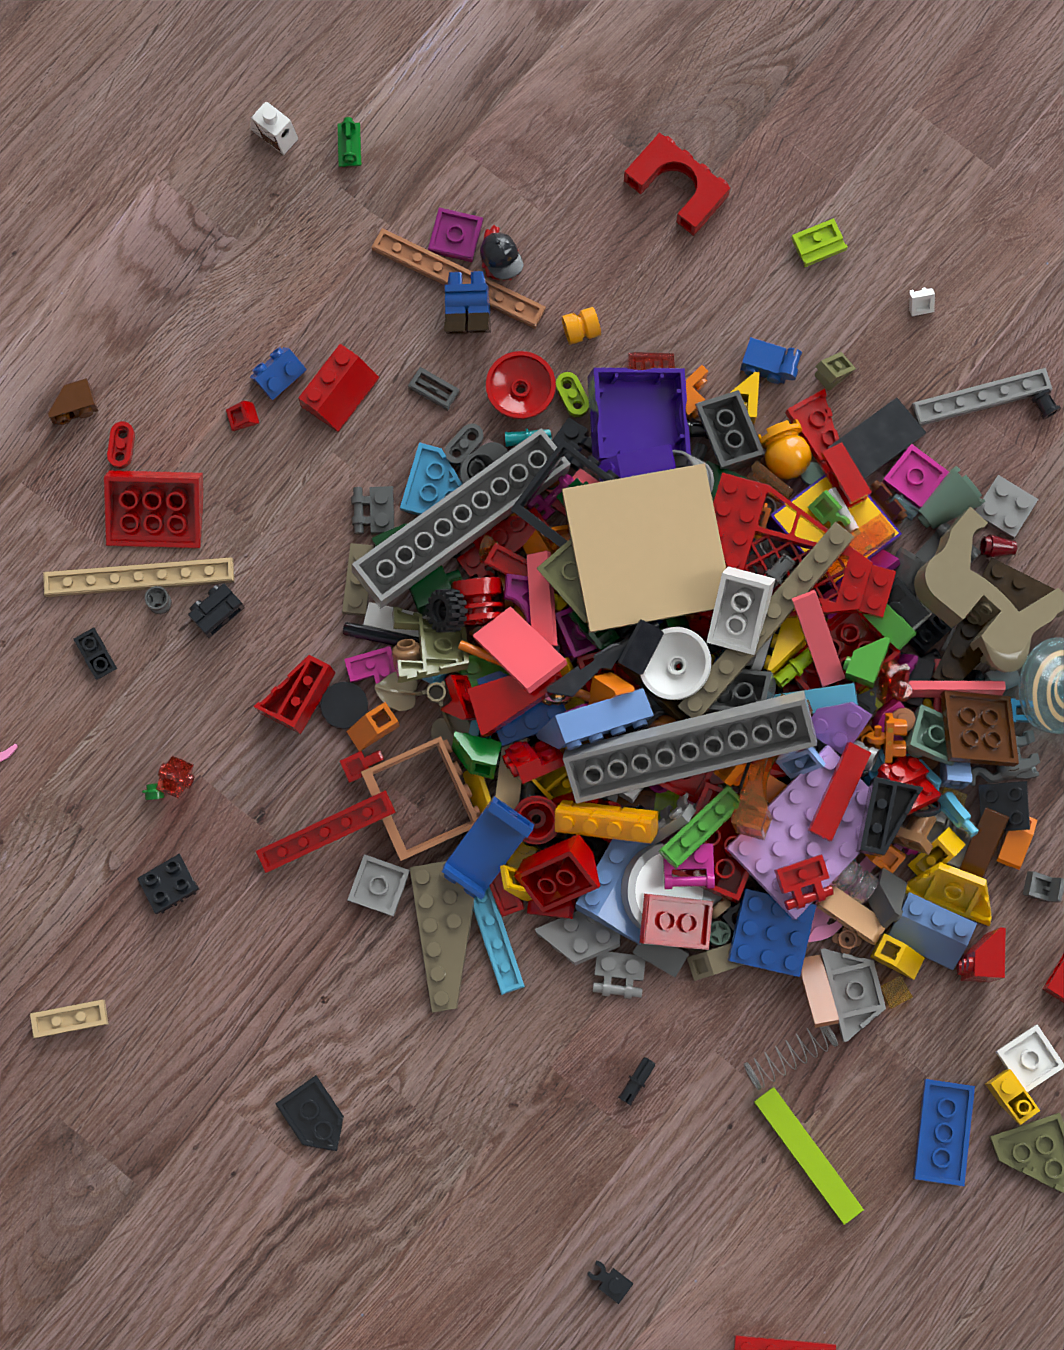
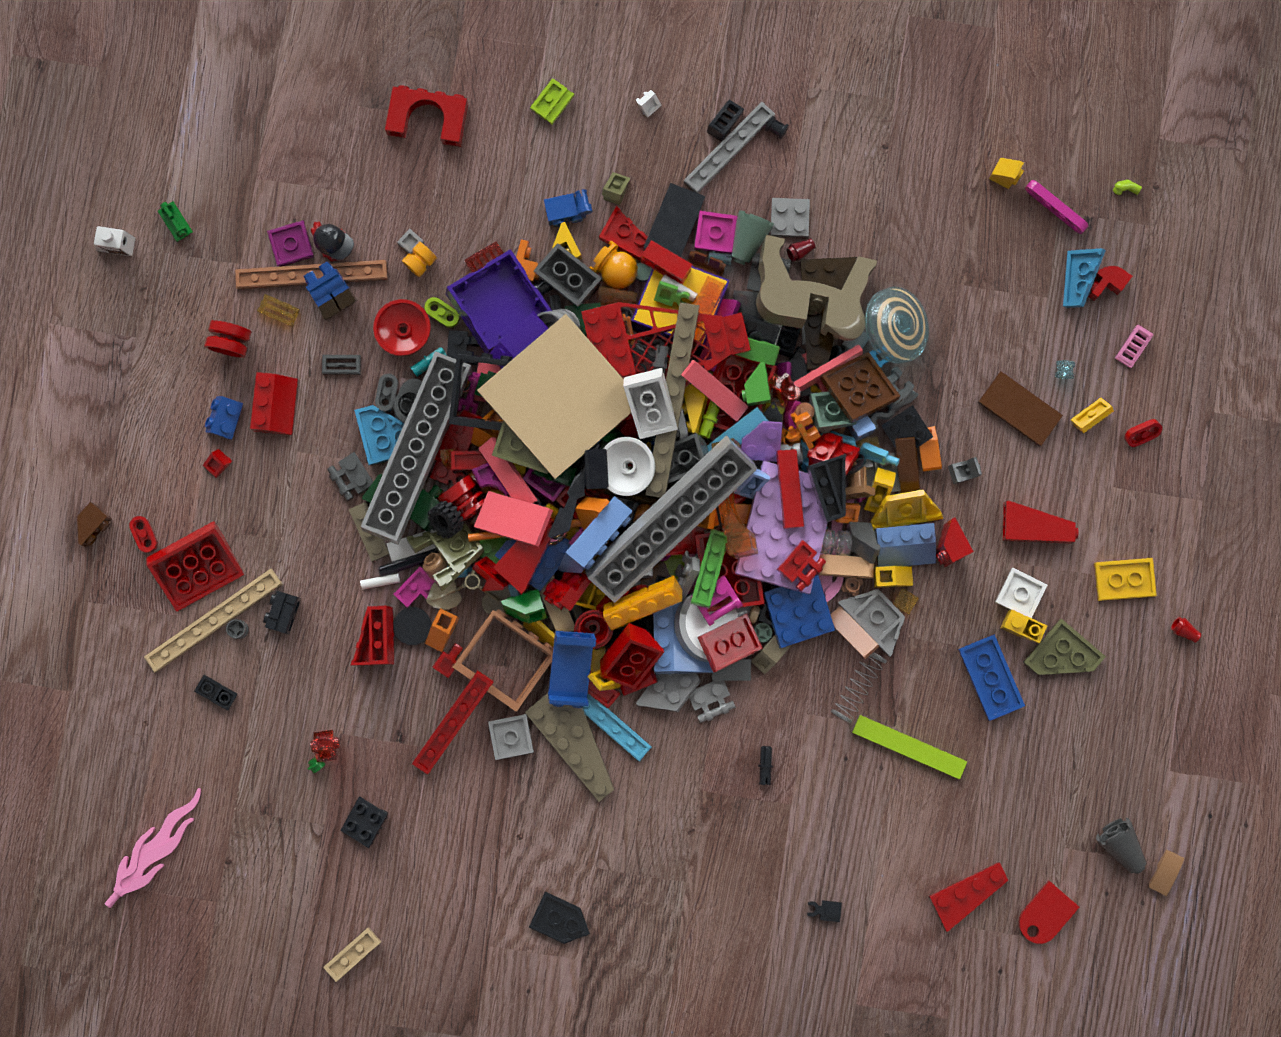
camera: 25 degrees left, 5 degrees up
(330, 293) = (227, 339): none -> red wheel
(338, 638) = (380, 581): none -> white piece
(391, 280) = (264, 304): none -> clear yellow tile
(581, 301) = (409, 241): none -> light grey tile
(980, 371) = (717, 129): none -> black slope

